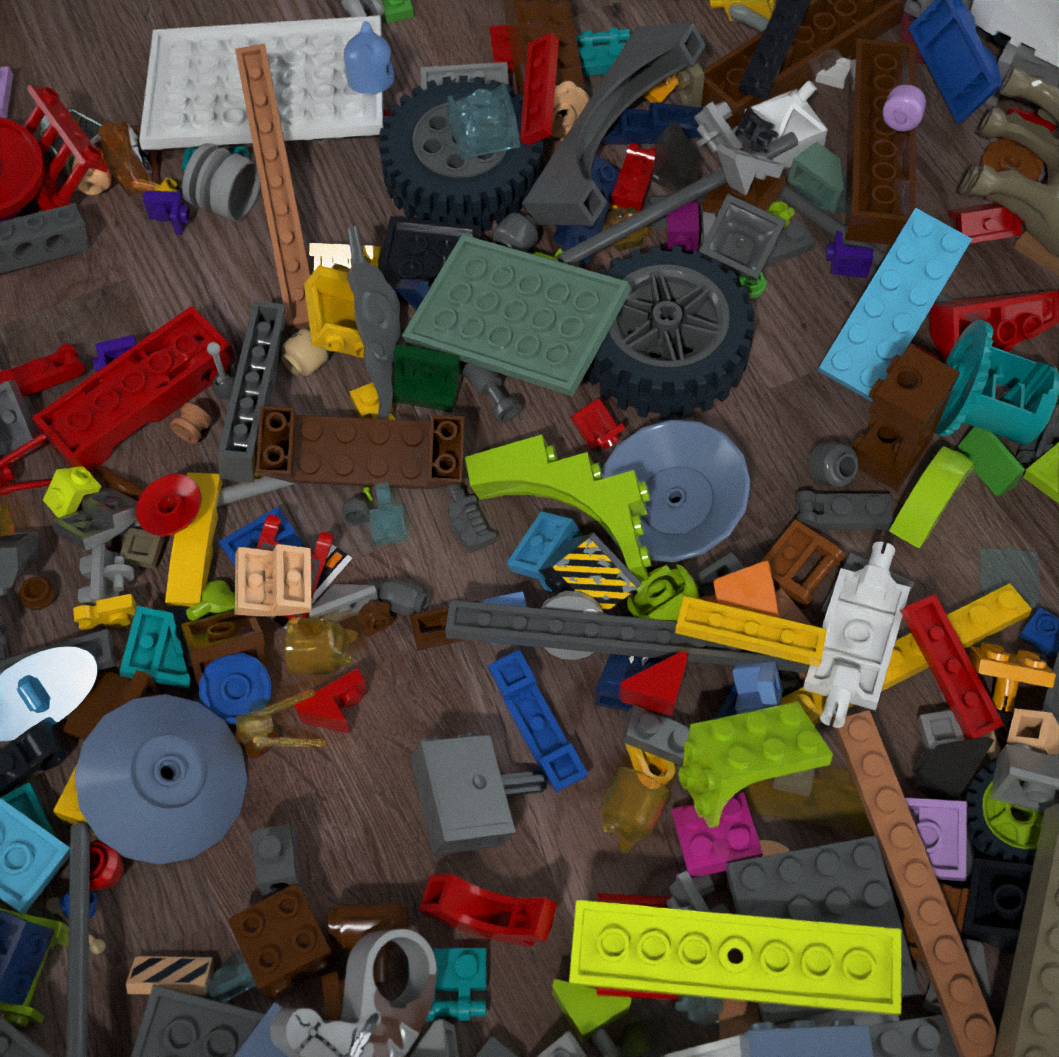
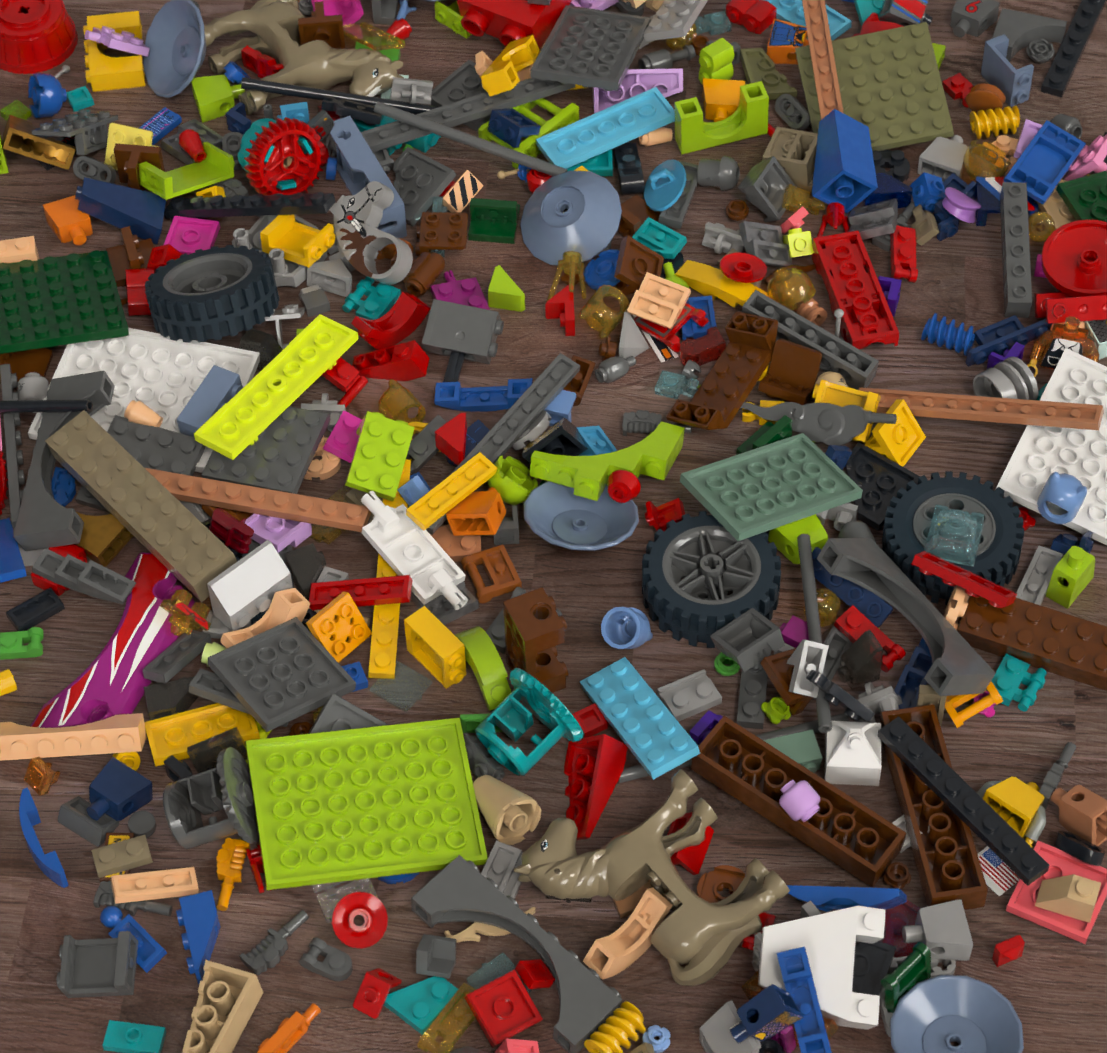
camera: 120 degrees right, 10 degrees down
(31, 513) = (795, 220): none -> coral plate
(113, 612) = (696, 236): yellow plate -> none
(134, 224) = (1003, 336): none -> dark blue bracket
(155, 274) = (948, 334): none -> blue piece
(172, 448) = (790, 287): none -> clear yellow cylinder
(200, 897) = (493, 220): none -> dark green bracket
(276, 858) = (487, 248): dark grey torso -> none
(312, 509) = (703, 349): none -> clear red leg
(313, 392) = (791, 372): none -> reddish brown bracket
(339, 802) = (504, 292): none -> lime slope
(382, 856) = (460, 291): none -> magenta plate
(405, 64) = (1064, 542): none -> dark blue bracket
(447, 42) = (1077, 569): none -> lime torso
(552, 871) = (396, 362): none -> red slope
(612, 456) = (623, 486): none -> red cone
(788, 376) = (626, 628): none -> medium blue piece
(812, 299) = (690, 695): none -> light grey plate
(958, 545) = (435, 647): none -> yellow window
(986, 879) = (231, 530): none -> dark red arm

